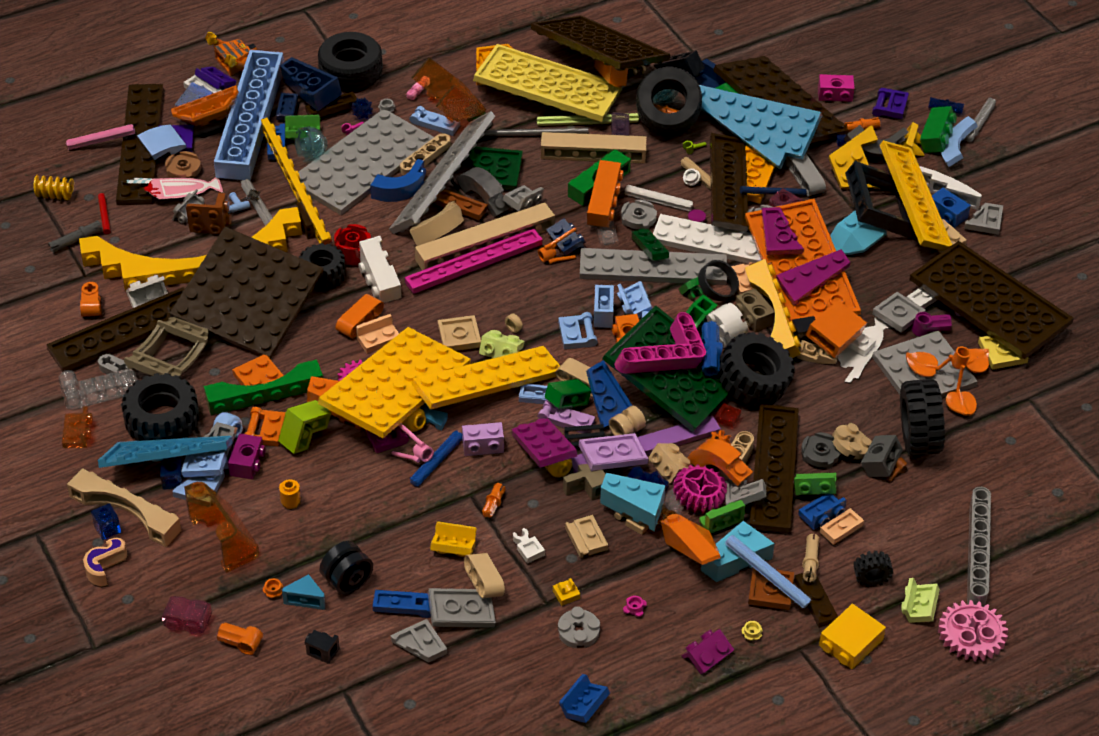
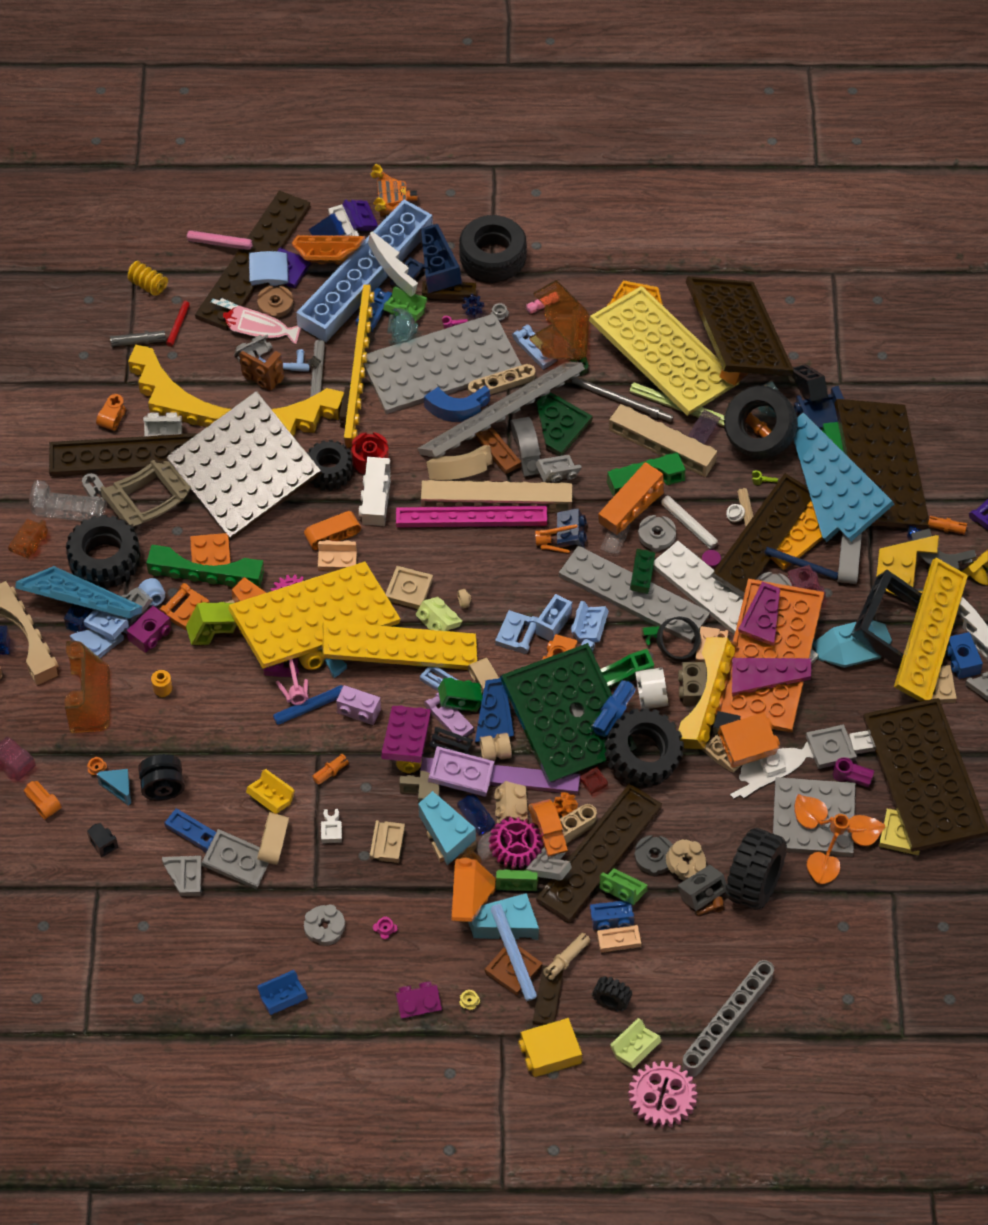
camera: 30 degrees right, 10 degrees up
(272, 95) = (388, 259): none -> white slope
(566, 592) = (336, 886): yellow tile -> none
(684, 354) = (562, 697): dark pink beam -> none
(836, 88) = (949, 472): dark pink brick -> none

